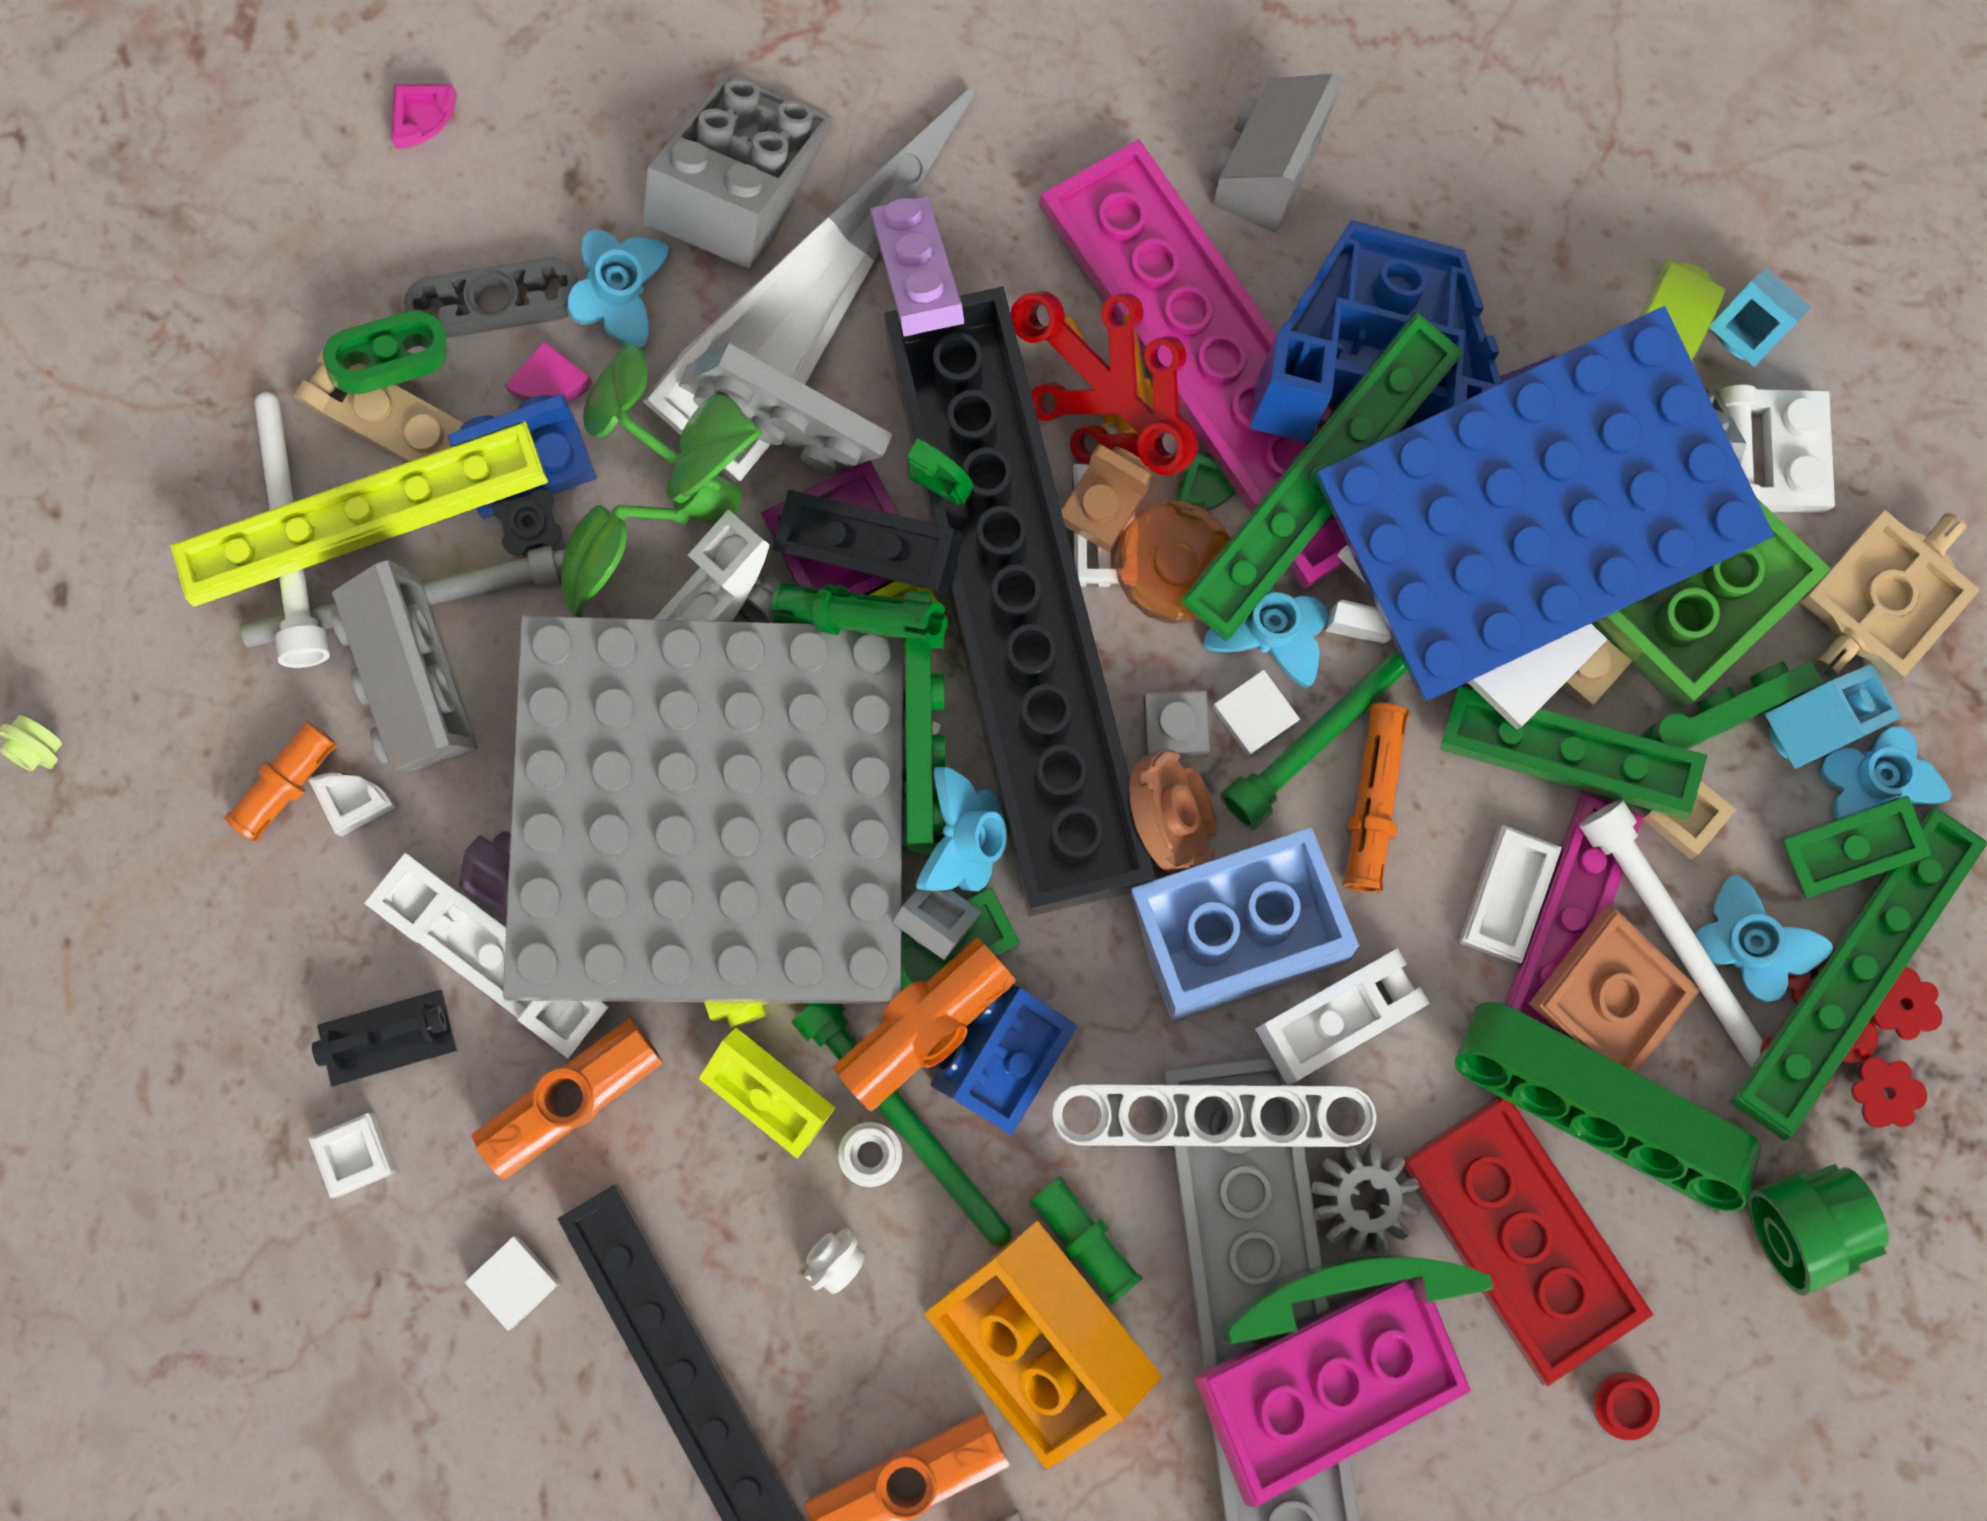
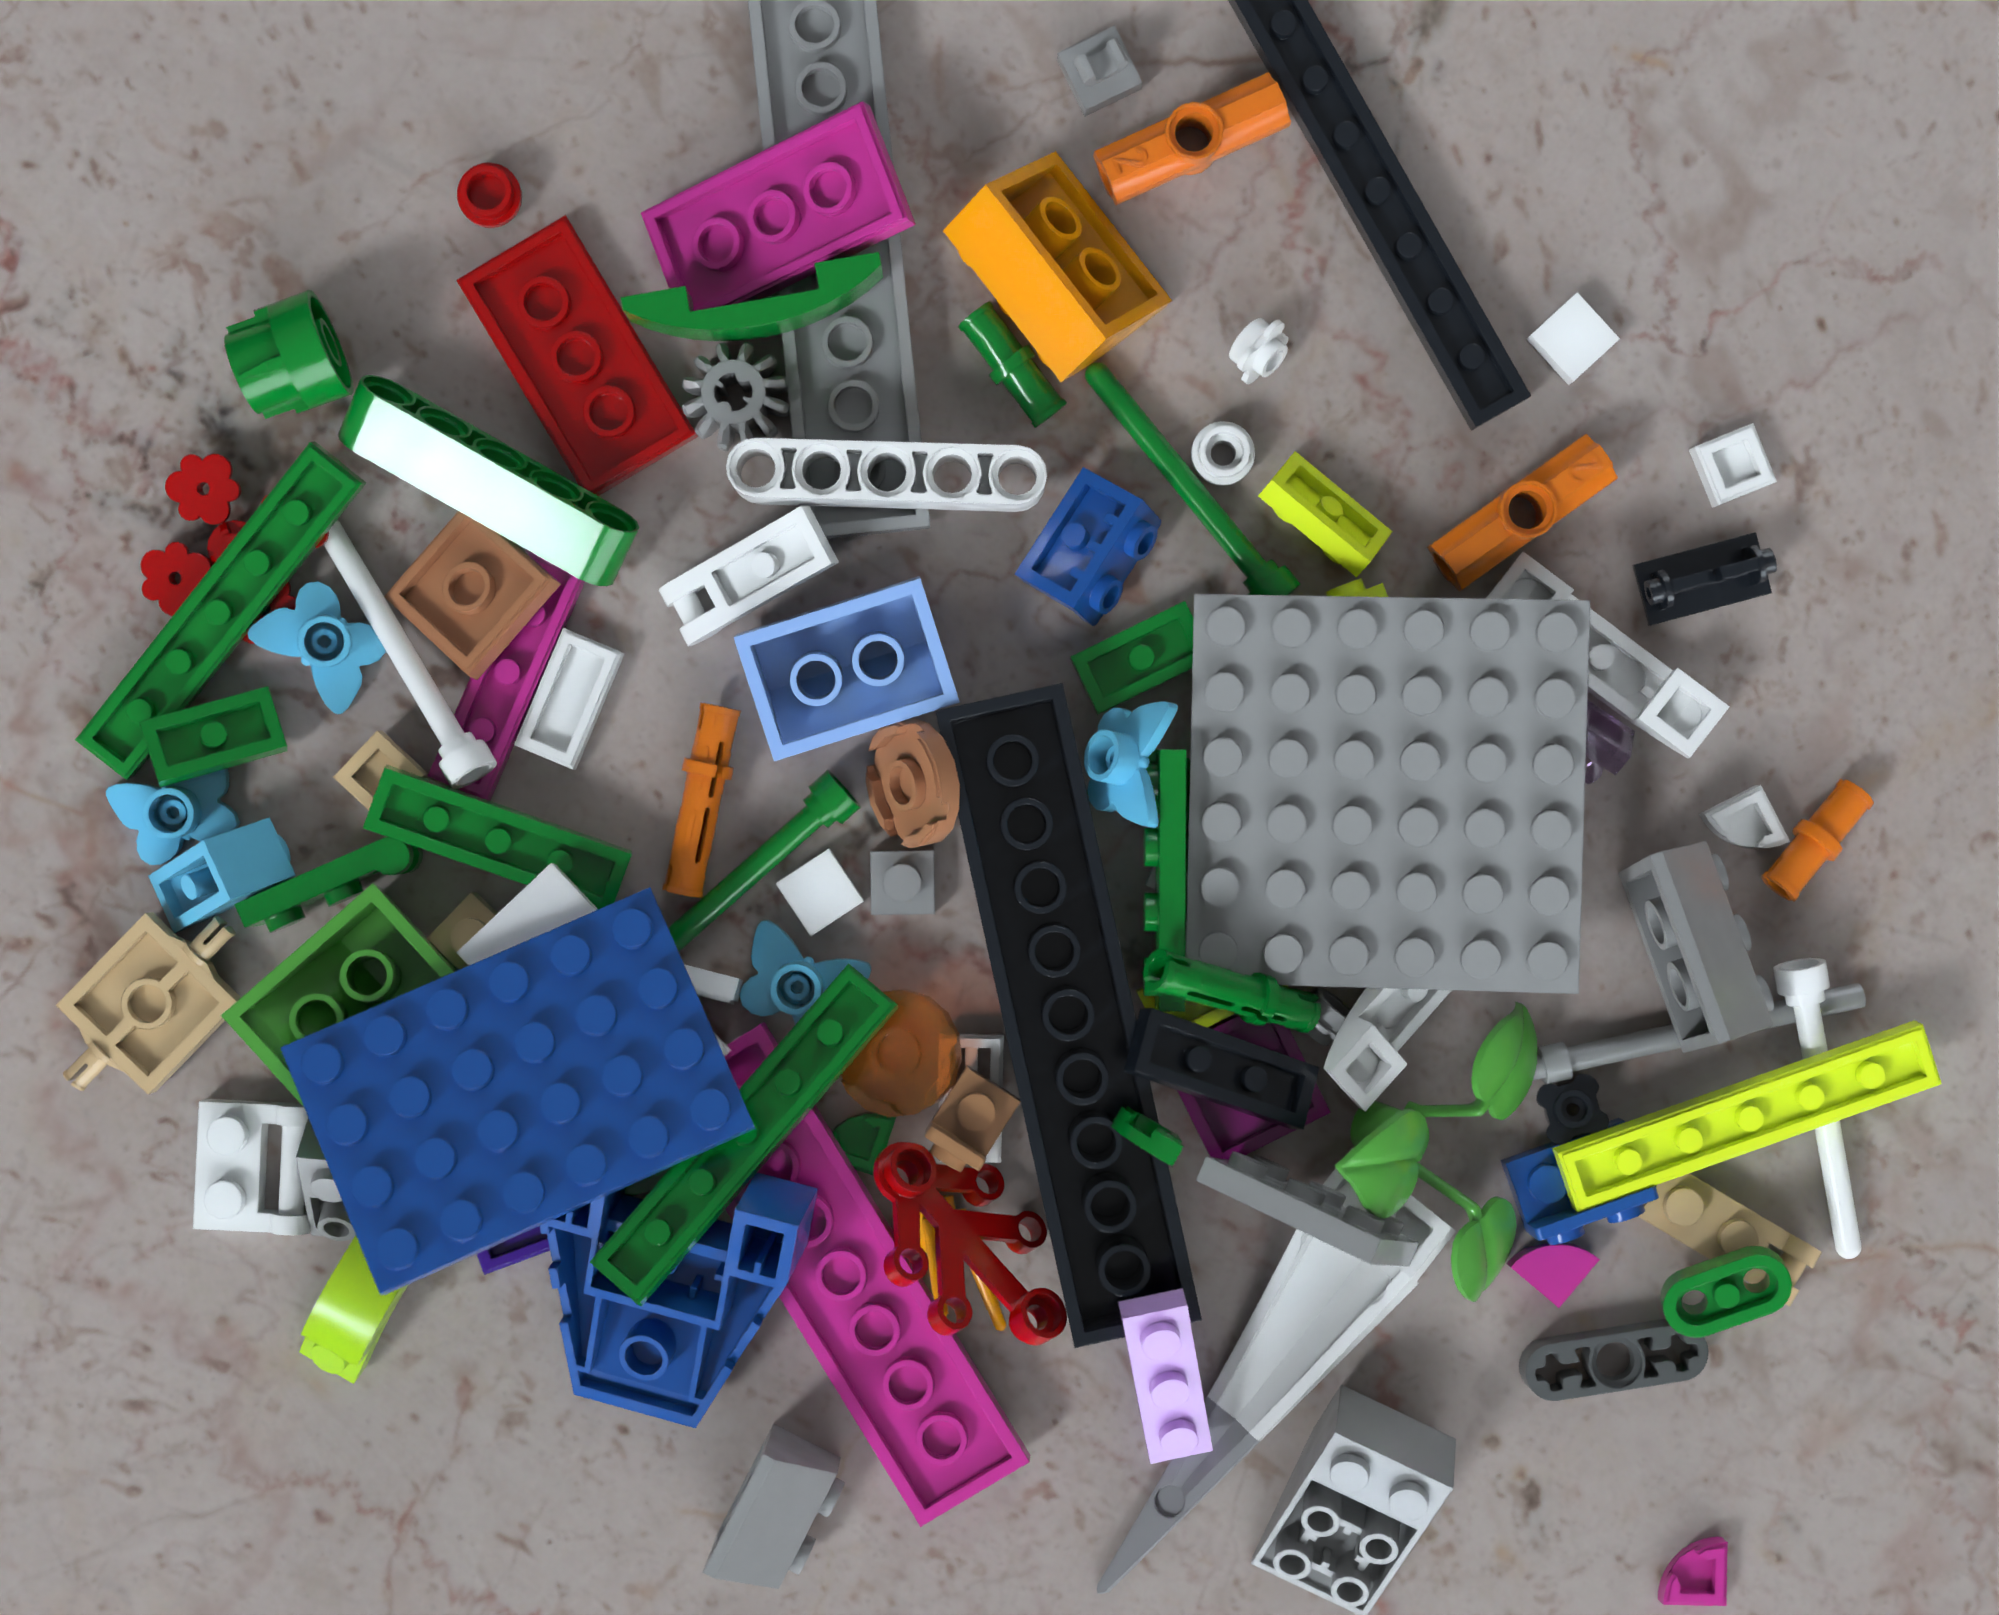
camera: 170 degrees left, 10 degrees up
(615, 284) = (1483, 1371): medium azure animal -> none
(924, 1024) = (1170, 572): orange piece -> none
(937, 919) = (1155, 675): light grey plate -> none
(1759, 317) = (262, 1308): medium azure brick -> none

